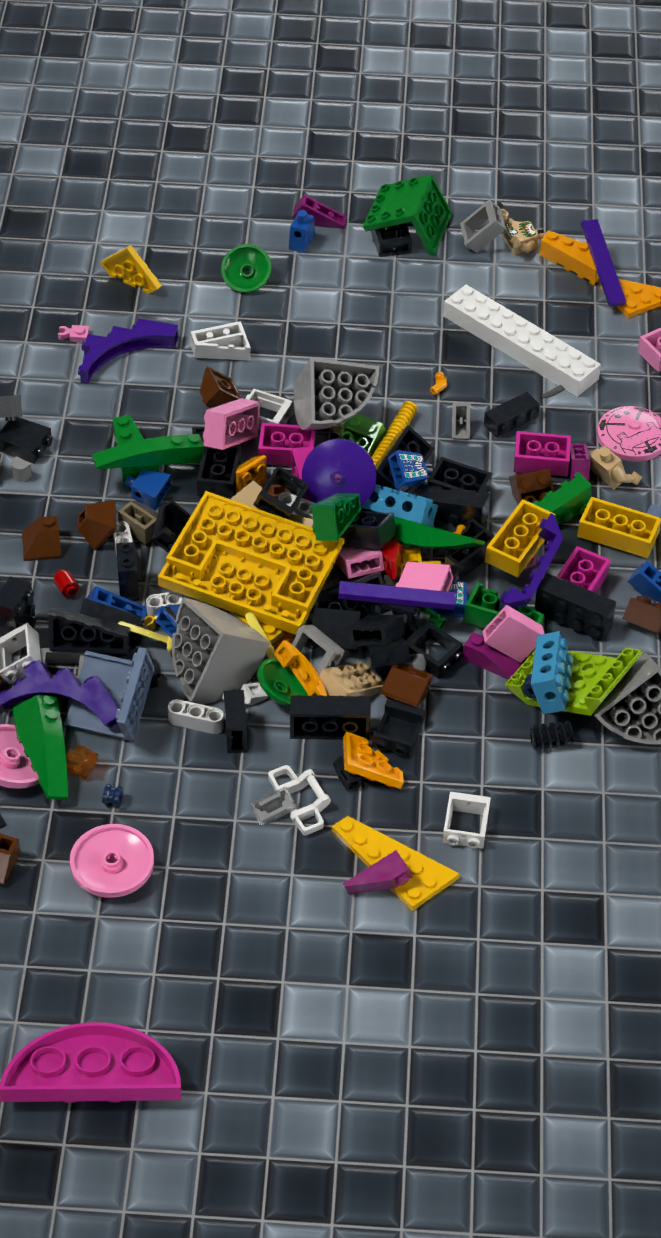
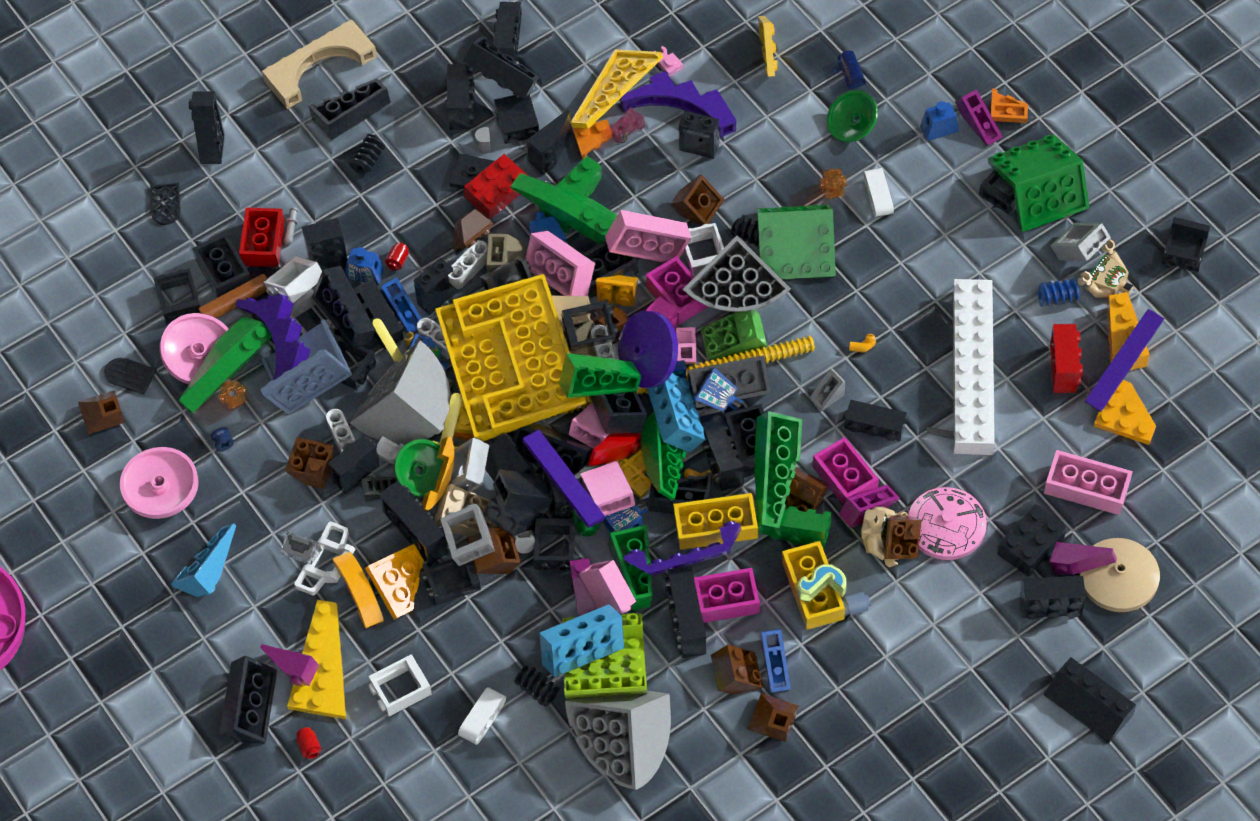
camera: 55 degrees right, 10 degrees up
(40, 496) = (467, 169): none -> black plate
(42, 539) = (427, 210): reddish brown slope -> none
(55, 597) = (364, 266): none -> blue torso
(63, 366) = (615, 80): none -> yellow wing
(73, 485) = (491, 188): none -> red brick
(76, 433) = (549, 142): none -> black slope
(89, 412) = (593, 137): none -> orange wing
(106, 385) = (626, 125): none -> clear pink leg
(171, 360) = (697, 144): none -> black window
(189, 485) = (560, 263): none -> bright pink brick
(201, 249) = (851, 69): none -> clear blue brick
(202, 748) = (310, 462): none -> reddish brown slope
(221, 342) = (749, 163): white wedge -> none
(225, 881) = (209, 563): none -> dark azure wedge
(264, 734) = (375, 482): none -> pearl dark grey slope
(279, 376) = (746, 230): none -> black piece
(288, 313) = (833, 183): none -> clear orange brick
(317, 340) = (797, 240): none -> green bracket
(322, 298) = (878, 192): none -> white beam
(330, 197) = (1008, 108): none -> orange wing
(352, 786) = (359, 588): none -> light orange slope
(382, 930) = (248, 701): none -> black slope
(393, 704) = (474, 550): none -> light grey window
(462, 912) = (308, 743): none -> red brick
(501, 473) = (775, 461): none -> green wedge
(507, 265) = (1058, 291): none -> blue piece
(532, 188) = (1186, 244): none -> black panel
(543, 786) = (482, 715): none -> white beam
(566, 291) = (1065, 358): none -> red brick
(629, 510) = (821, 577): none -> yellowish green animal
(631, 460) = (902, 537): none -> reddish brown slope

